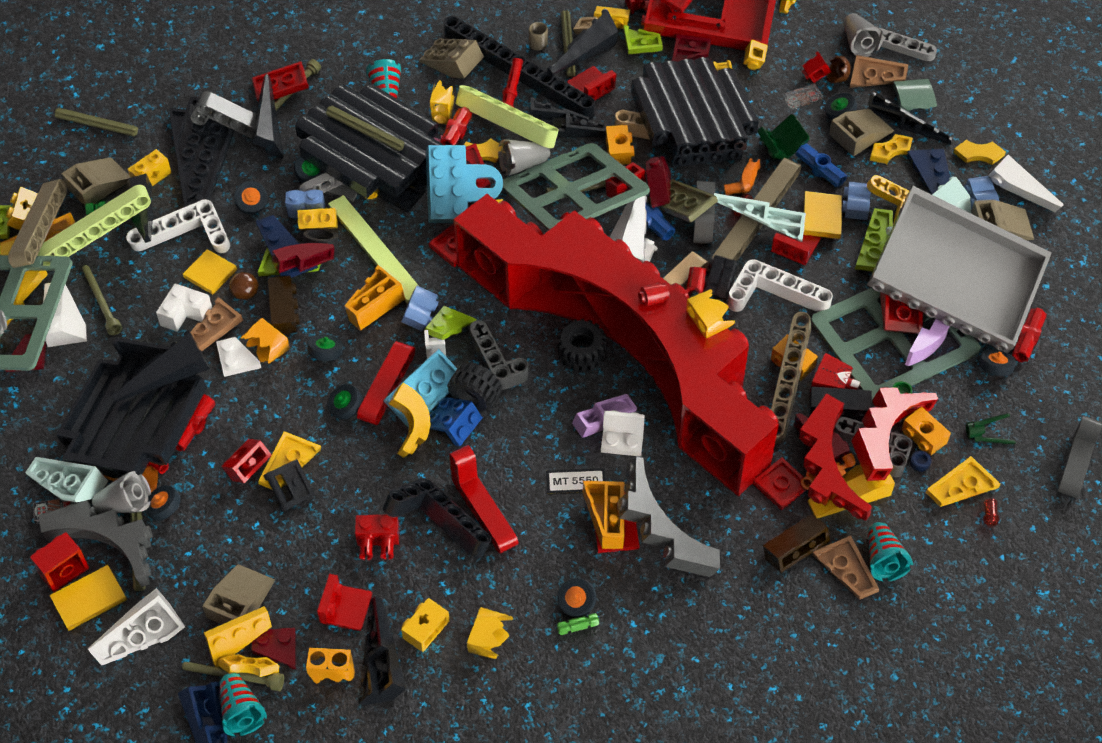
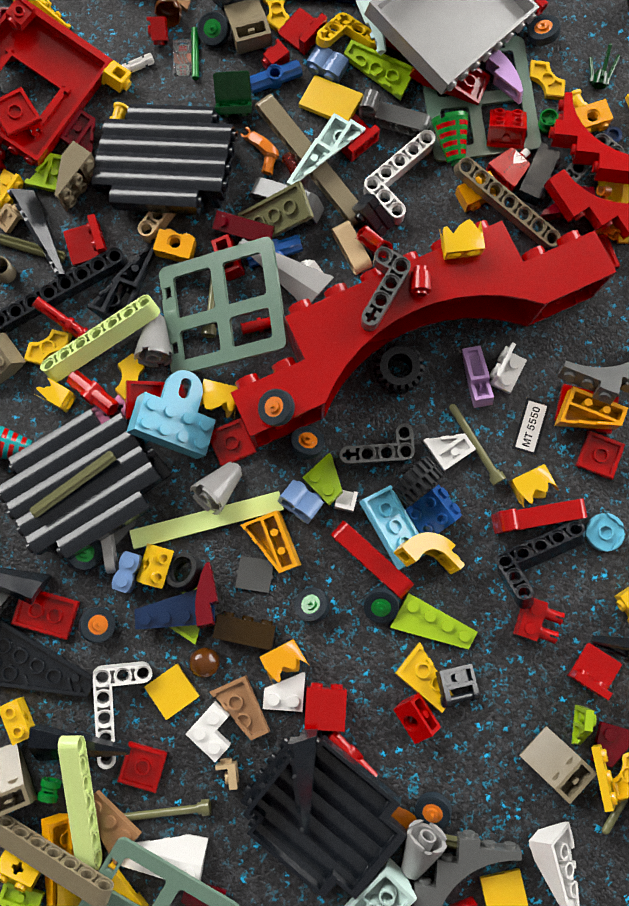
camera: 70 degrees left, 25 degrees up
(82, 262) = (112, 823): none -> medium nougat wing
(136, 272) = (143, 767): none -> red tile
(151, 334) = (231, 775): none -> tan bracket
(233, 387) = (325, 707): none -> red piece
(248, 163) = (47, 615): none -> red tile
(287, 602) = (583, 724): none -> lime wing
(335, 298) = (254, 574): none -> dark grey piece
(343, 451) = (426, 621): none -> lime wing
(408, 240) = (216, 488): none -> light grey cone
(477, 297) = (307, 442): none -> black wheel
(480, 84) = (39, 351): none -> yellow tile
(485, 223) = (276, 407): none -> black wheel
(492, 577) = (605, 532): none -> medium azure tile
(510, 460) = (495, 475): none -> olive piece
(516, 492) = (532, 484): none -> yellow piece
(520, 414) = (449, 449): none -> white wing
(572, 549) = (600, 455): none -> red tile
(631, 270) = (382, 292): none -> dark grey beam
(642, 49) = (74, 174): none -> dark tan slope
(777, 67) = (139, 63): none -> white axle
(811, 104) = (195, 53): none -> green bar
(832, 262) = (391, 116): none -> dark grey beam
(836, 313) = (452, 135): none -> green cone
(842, 159) = (275, 55): none -> red brick
(871, 356) = (507, 128): none -> red bracket
(877, 166) = (302, 30): none -> red bracket
(941, 412) = (577, 99): none -> yellow bush
(952, 378) = (542, 75): none -> yellow tile

